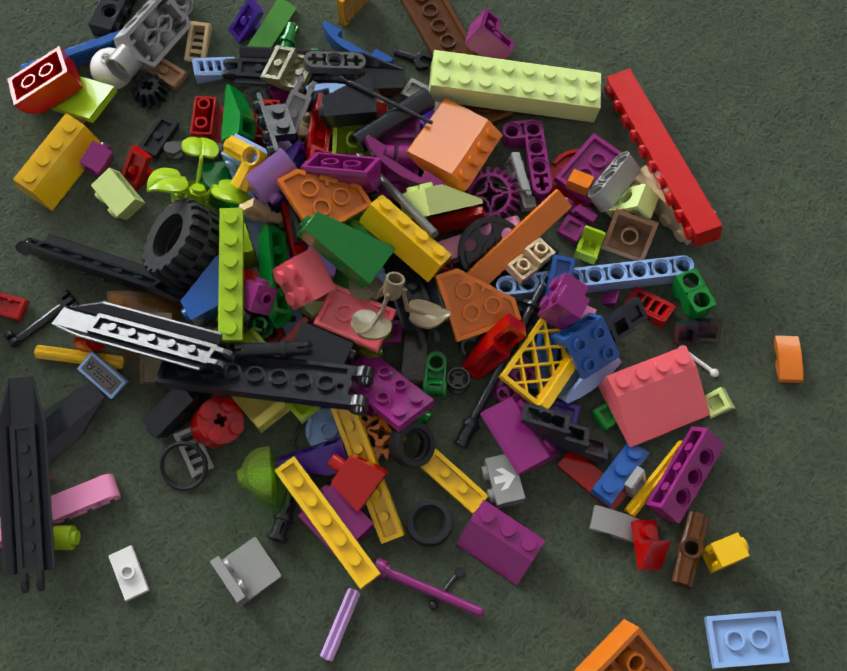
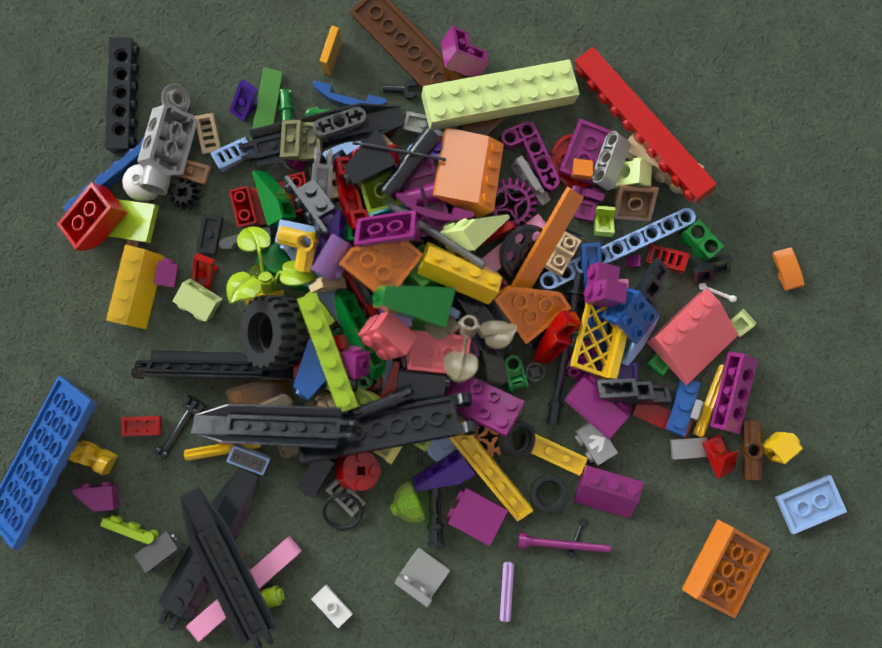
camera: 20 degrees left, 15 degrees up
(327, 523) = (473, 524): yellow plate -> none
(356, 478) = (485, 482): red torso -> none

